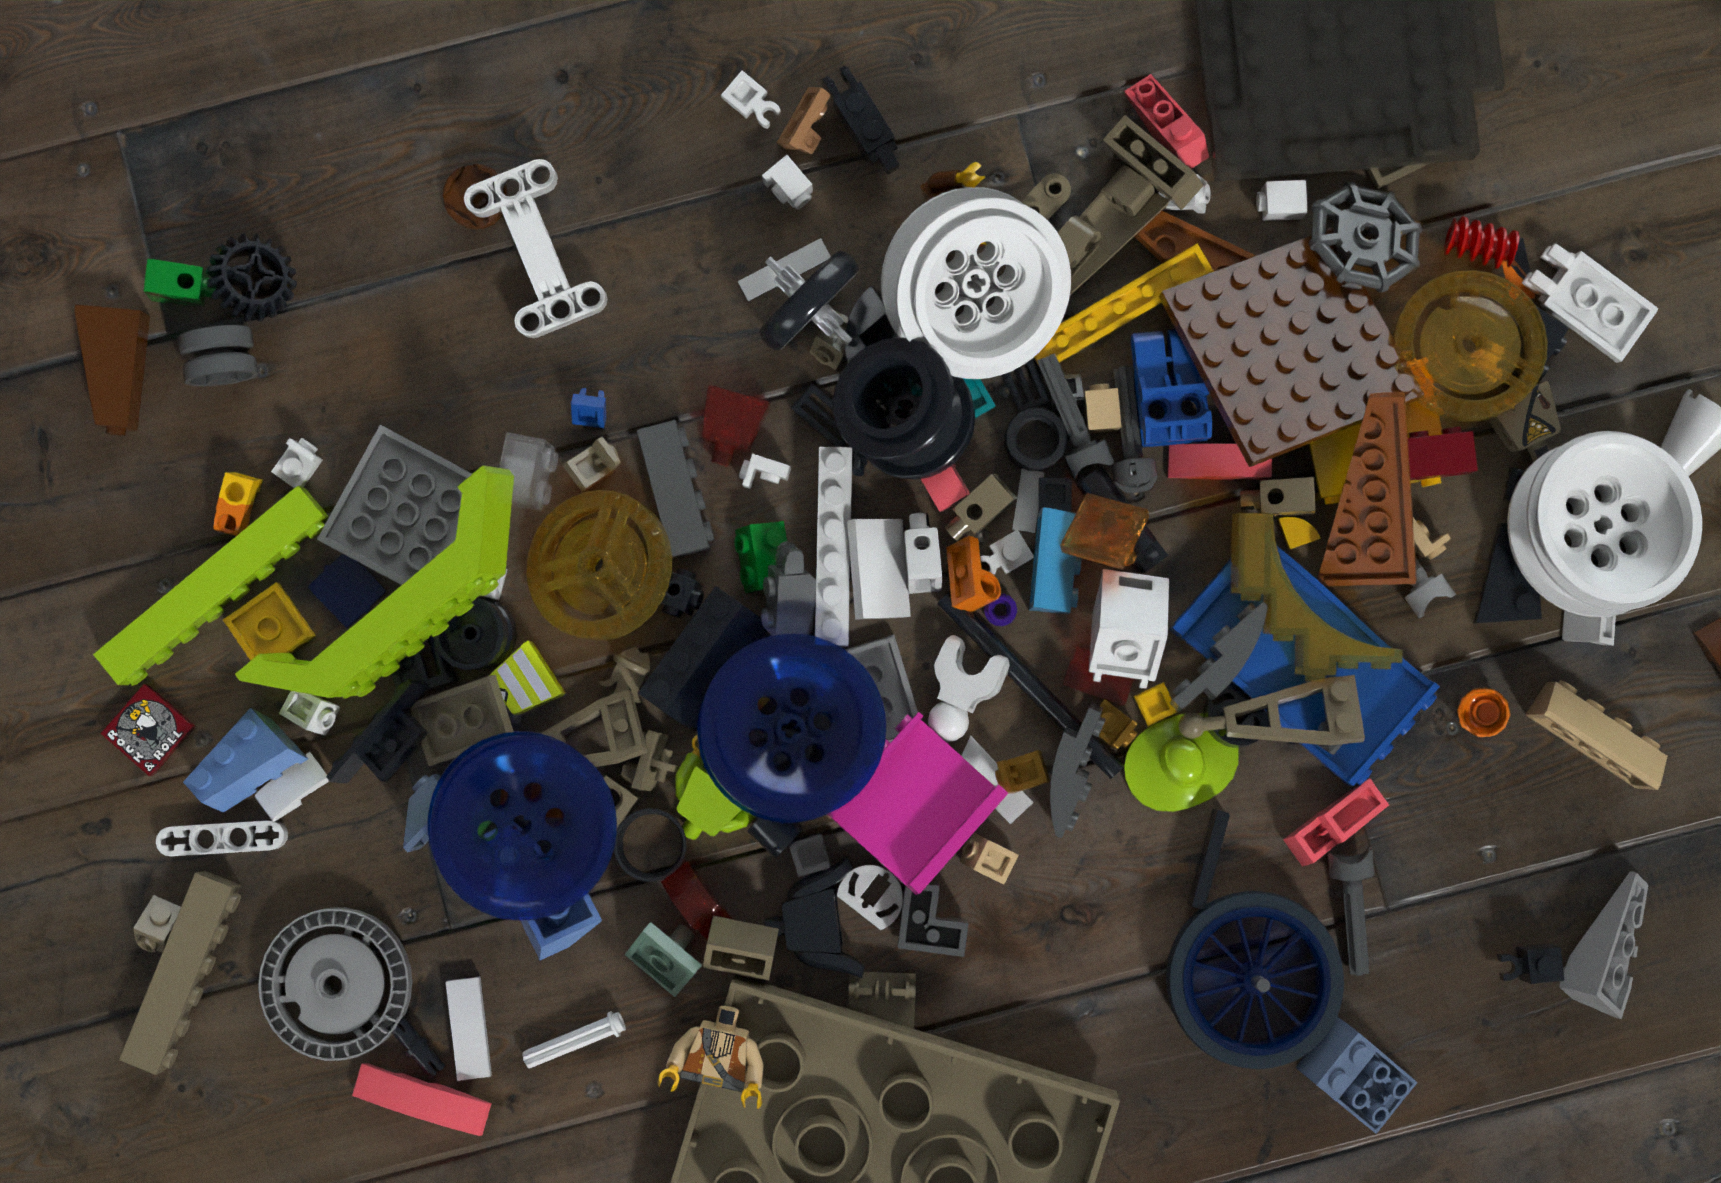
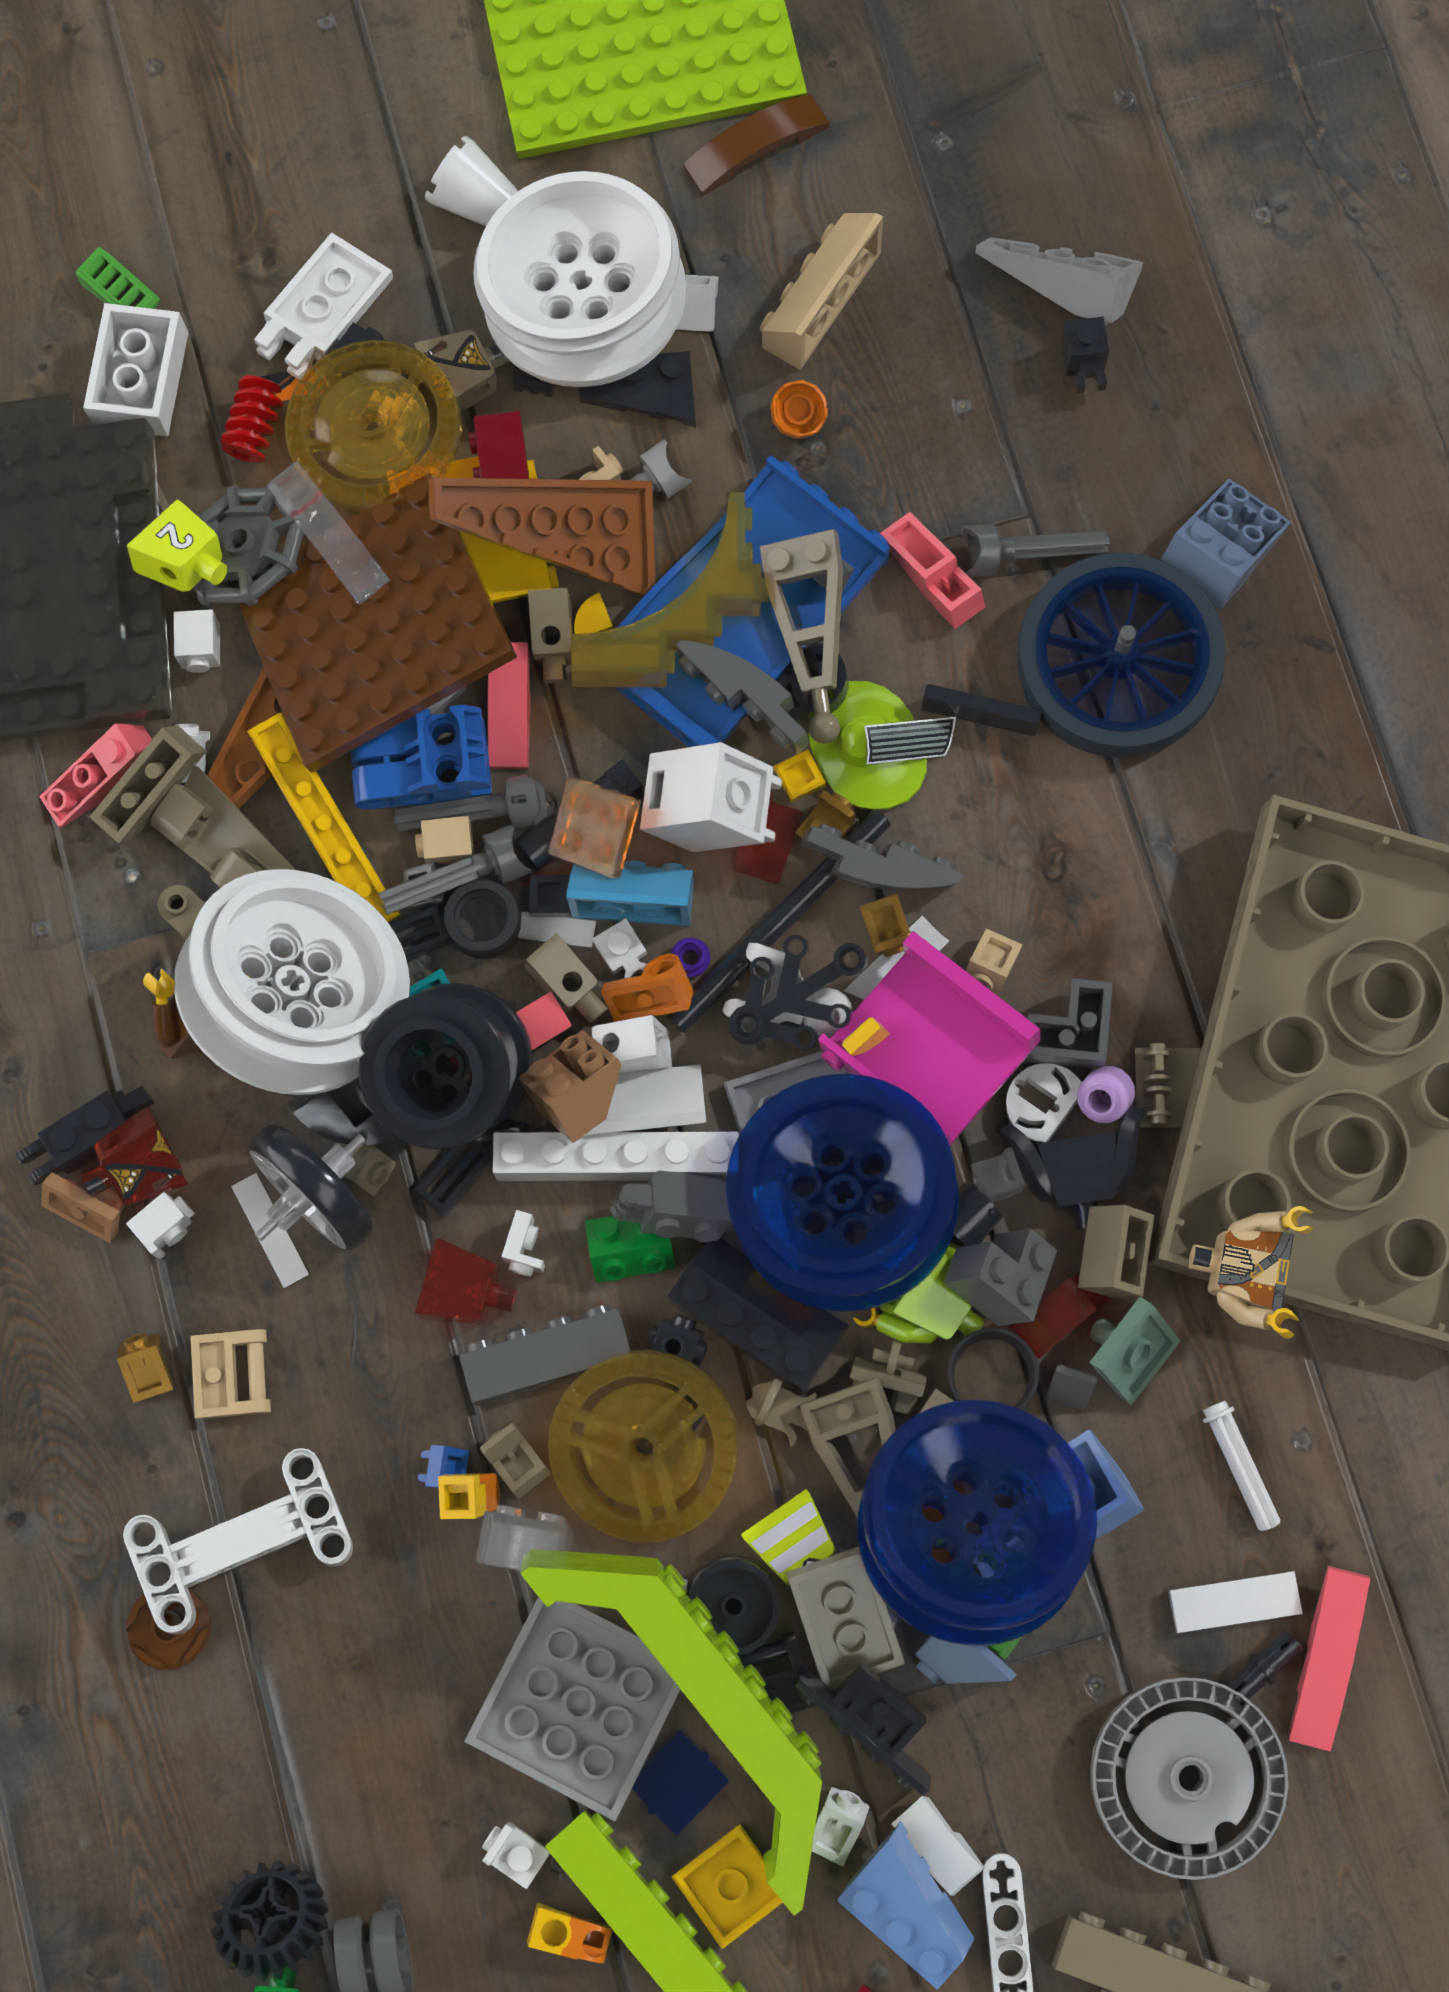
camera: 90 degrees left, 10 degrees down
(562, 427) = (468, 1495): none -> yellow leg
(639, 907) = (1071, 1387): none -> dark grey slope
(664, 229) = (216, 1374): none -> tan plate
(676, 172) = (144, 1366): none -> pearl gold bracket
(722, 858) = (1003, 1276): none -> dark grey brick
(747, 97) = (51, 1280): white plate -> none
(836, 161) = (135, 1161): none -> clear red torso
(874, 947) = (1106, 1094): none -> lavender head
(886, 512) = (573, 1085): none -> medium nougat slope
(920, 750) = (865, 1037): none -> yellow tile
(956, 692) = (791, 996): none -> black plant
(1182, 796) = (909, 740): none -> sticker
(1356, 182) = (178, 550): none -> neon yellow torso
(1367, 309) = (328, 532): none -> clear slope
(1529, 142) = (136, 366): none -> white brick
(1624, 102) = (101, 269): none -> bright green slope

